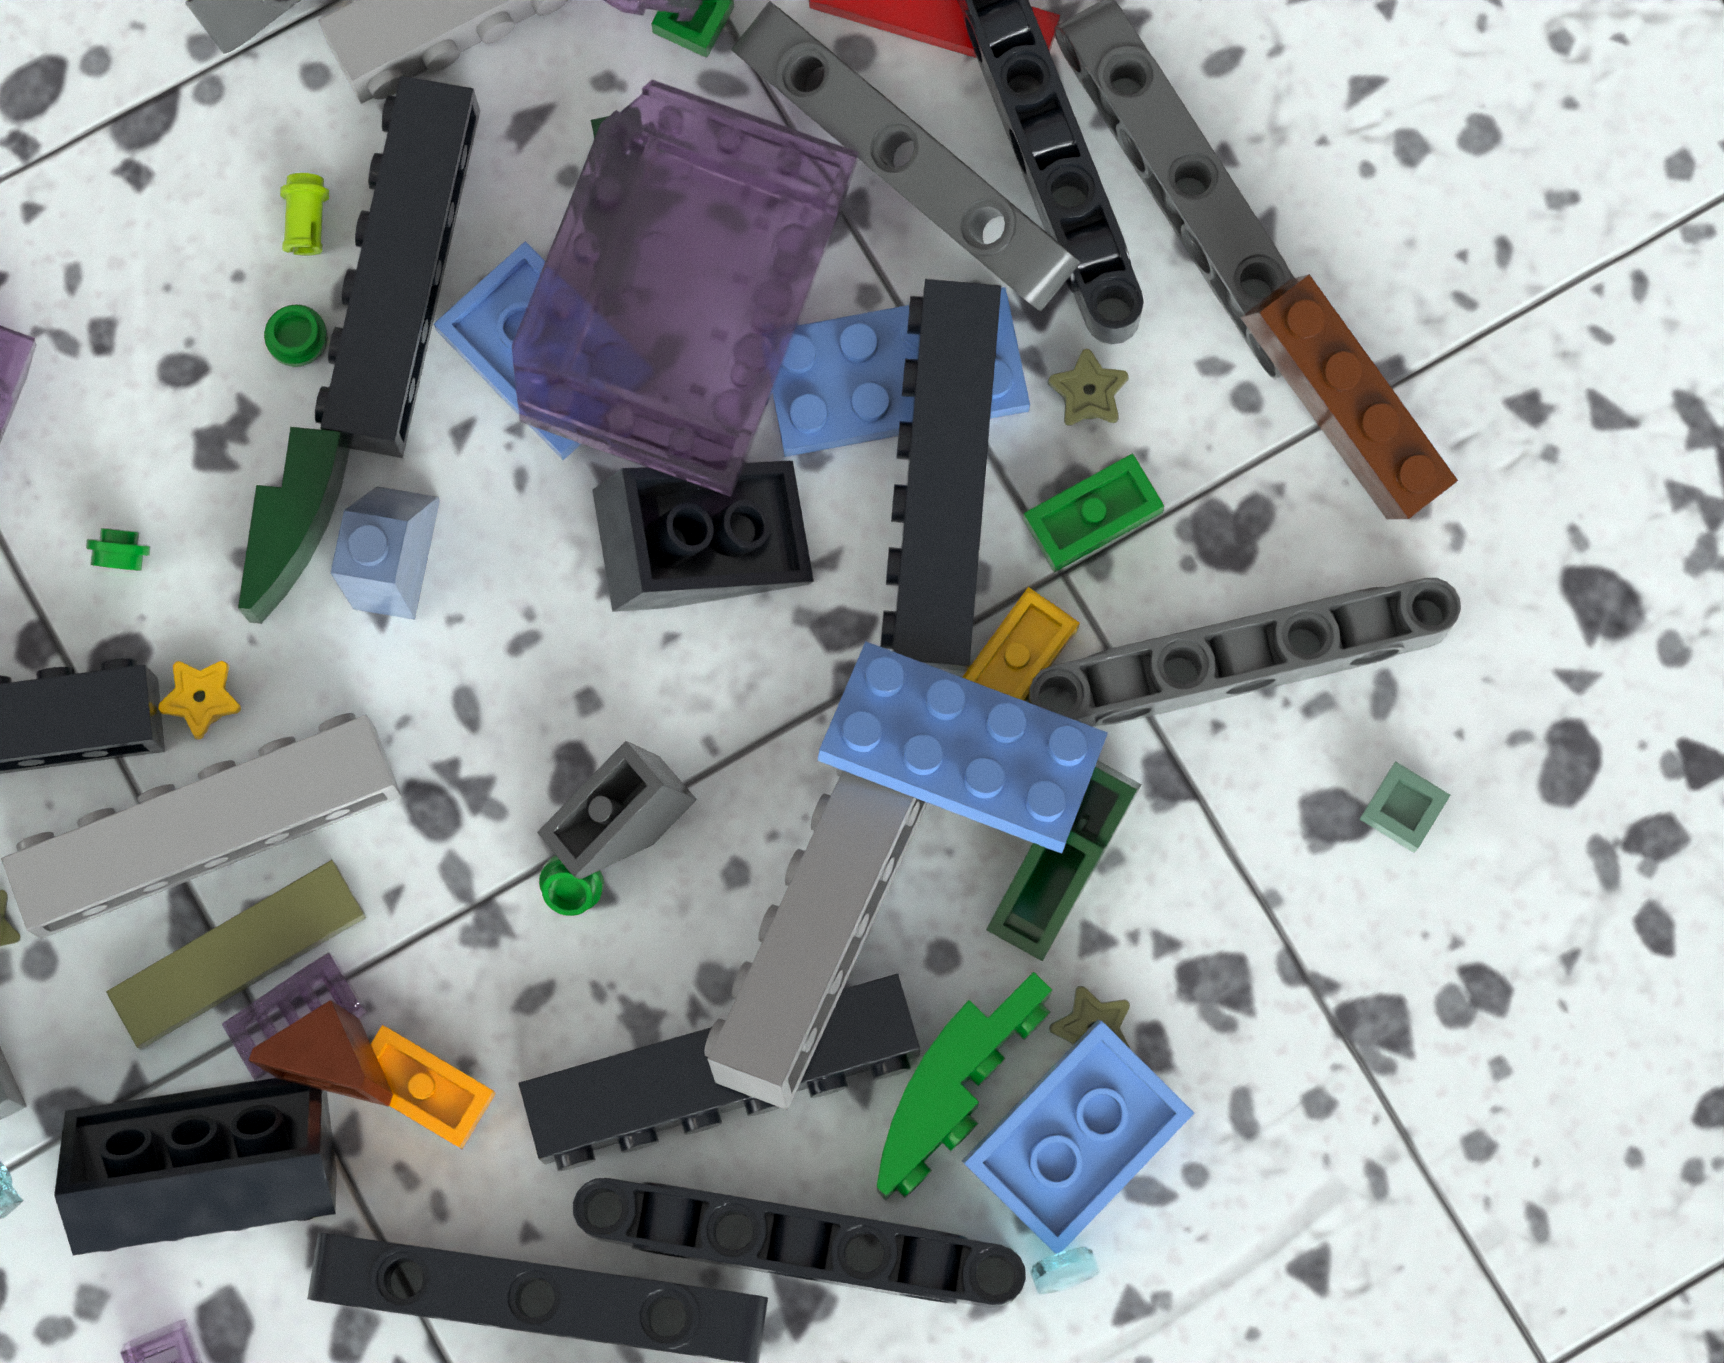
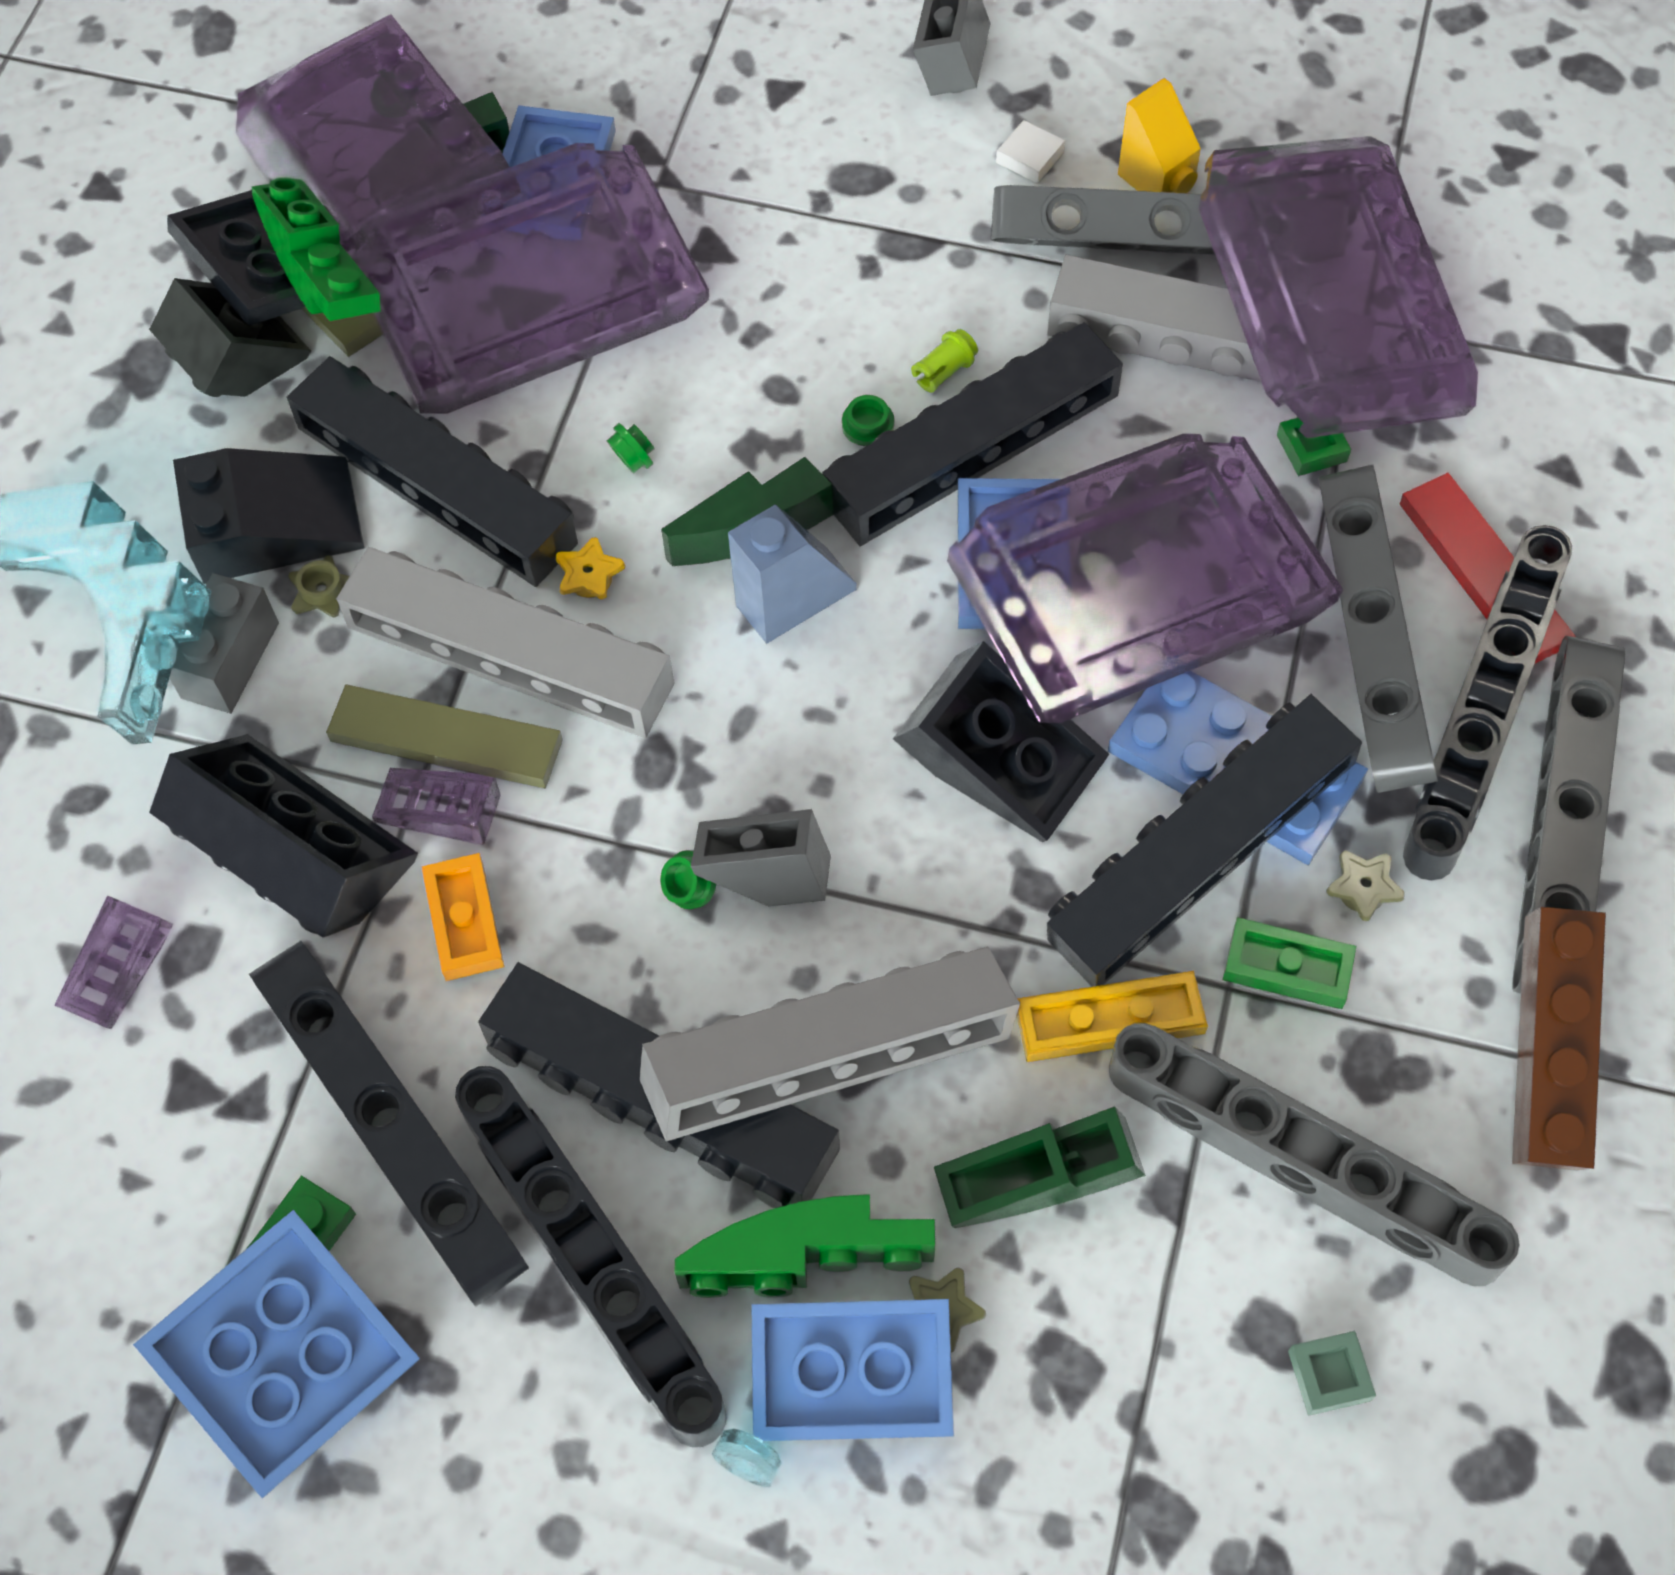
camera: 45 degrees right, 15 degrees down
(326, 1053) = (426, 832): copper slope -> none
(962, 747) = (1037, 1020): medium blue plate -> none

